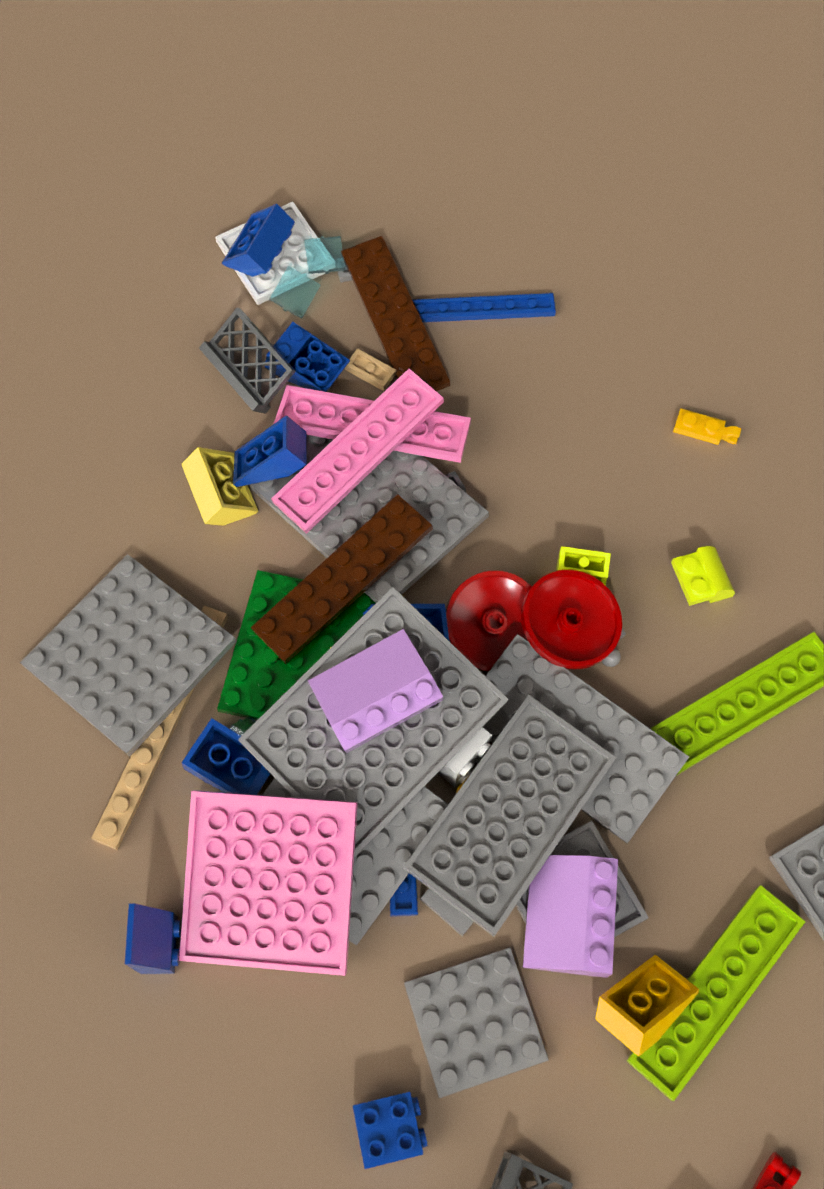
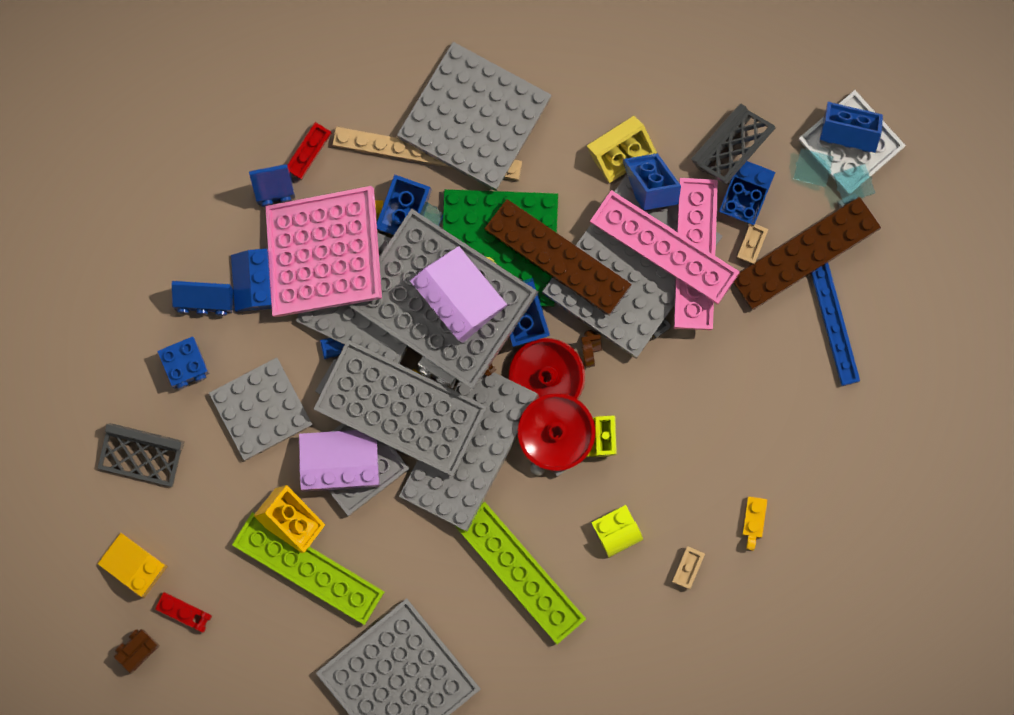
camera: 80 degrees right, 15 degrees up
(112, 880) = (308, 150): none -> red plate
(283, 1000) = (251, 280): none -> blue slope
(295, 1081) = (202, 297): none -> blue slope
(460, 564) = (590, 344): none -> reddish brown piece
(755, 506) = (688, 567): none -> tan plate

